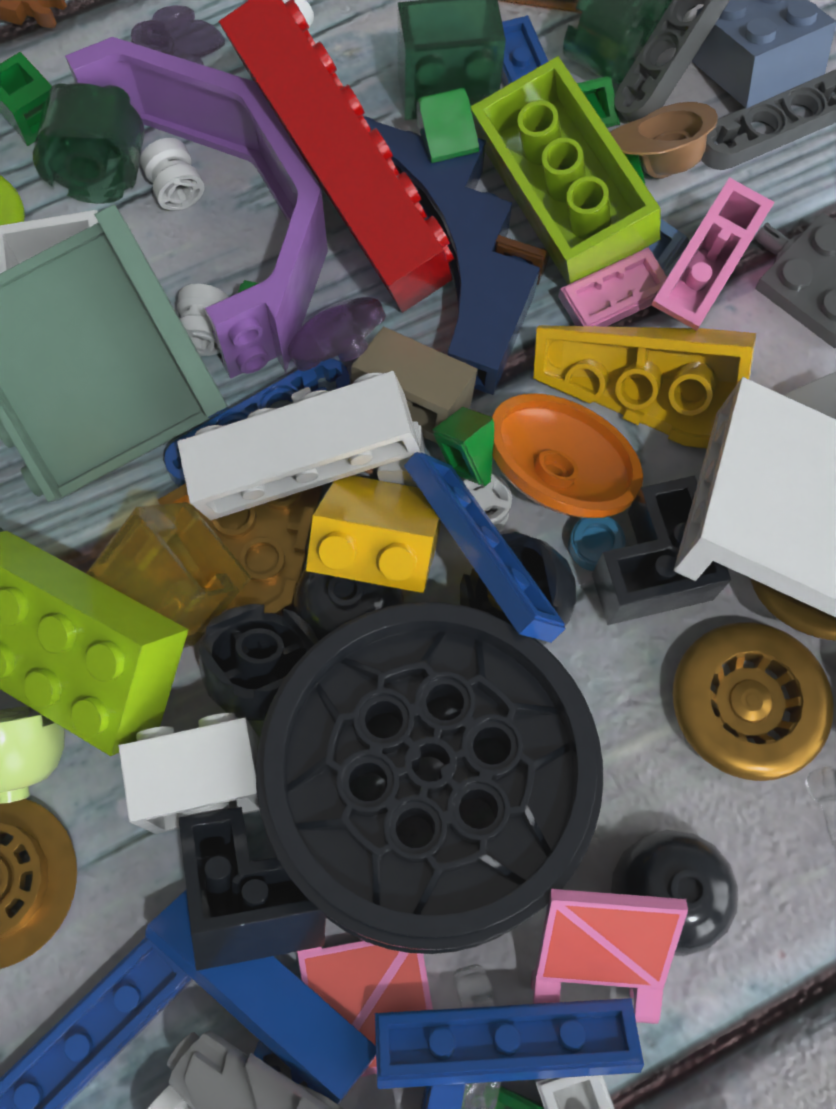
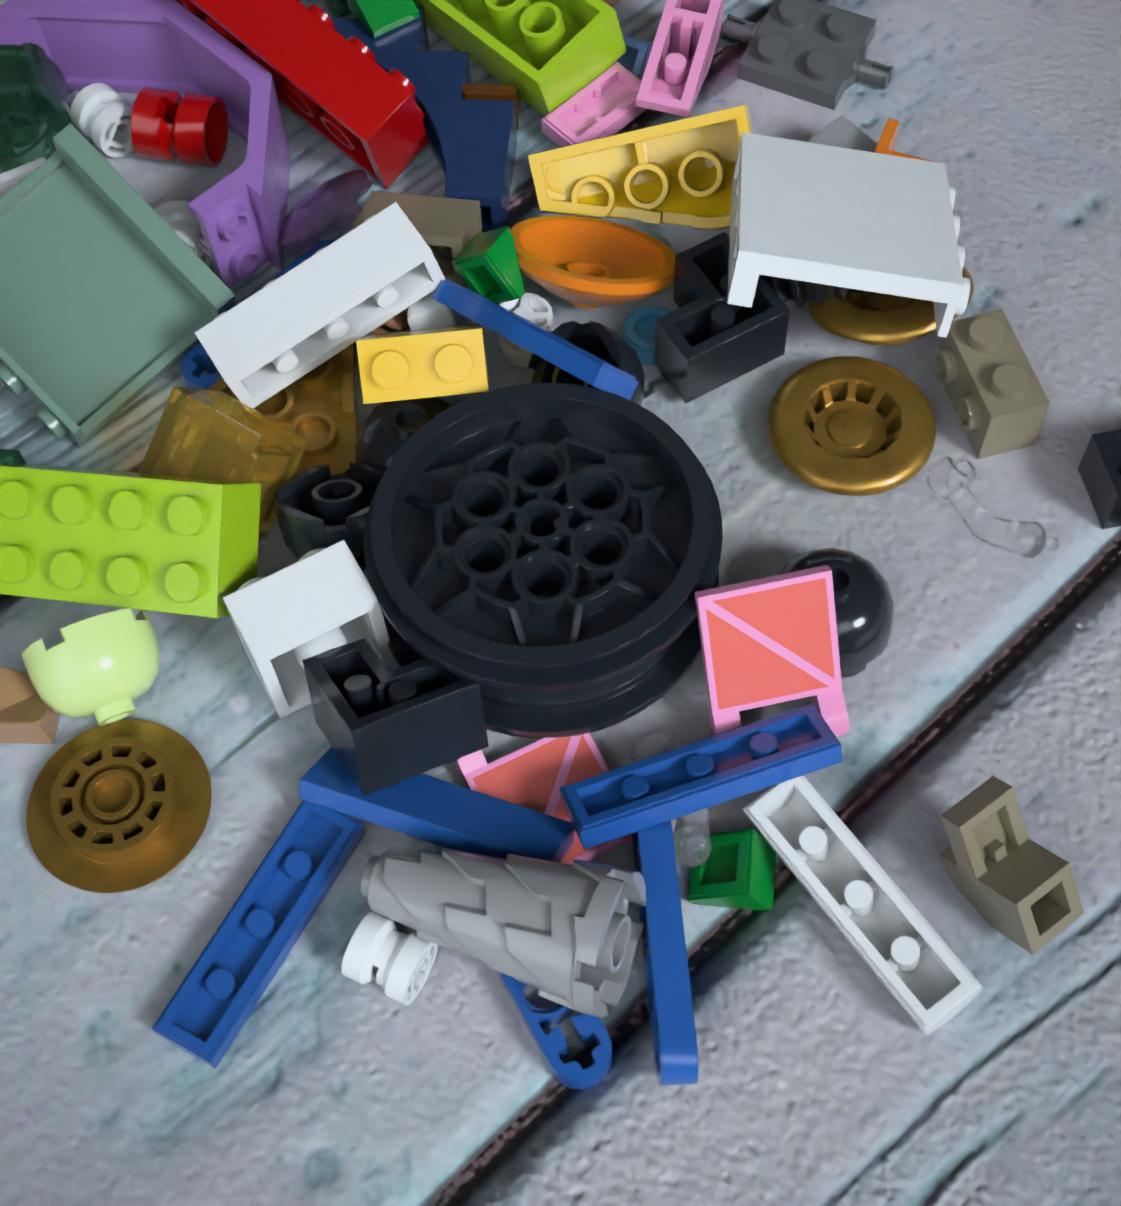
camera: 10 degrees left, 10 degrees down
(228, 201) = (179, 127): none -> red wheel

